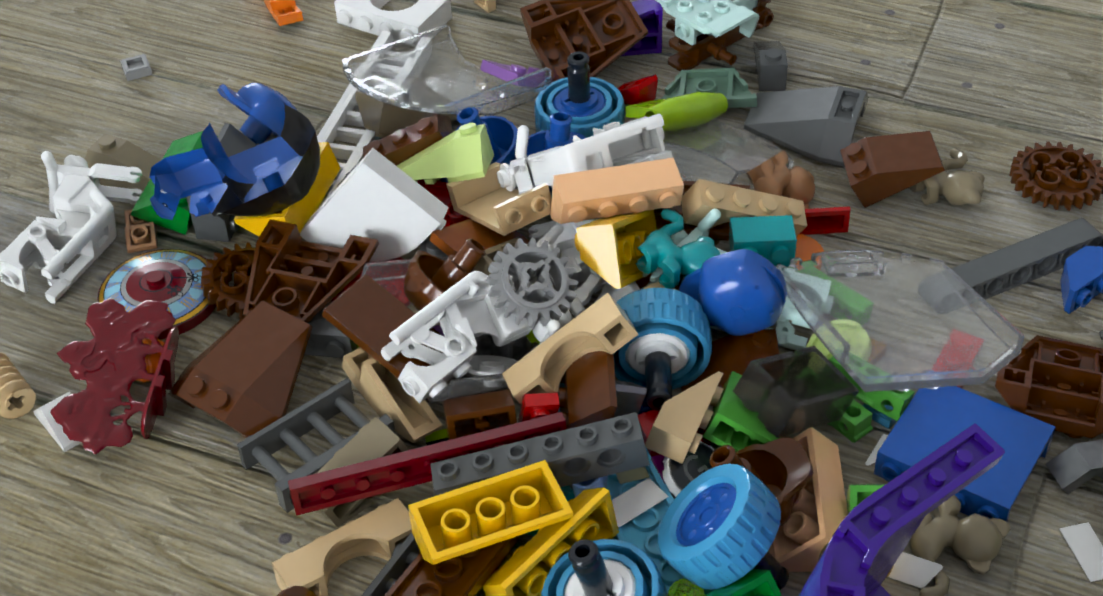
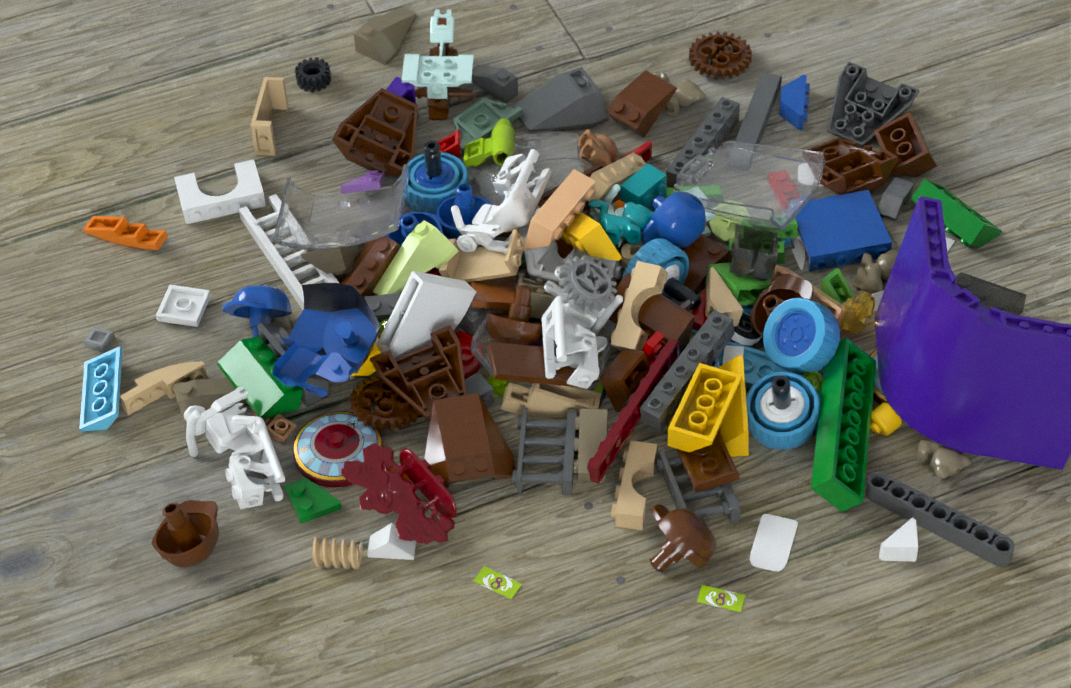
camera: 45 degrees left, 5 degrees up
(65, 319) = (310, 500): none -> green wing
(70, 108) = (101, 391): none -> medium azure slope
(89, 129) = (160, 382): none -> tan slope
(92, 542) = (497, 582): none -> lime sticker
(232, 73) = (183, 305): none -> white plate
(949, 241) = (708, 135): none -> dark grey brick

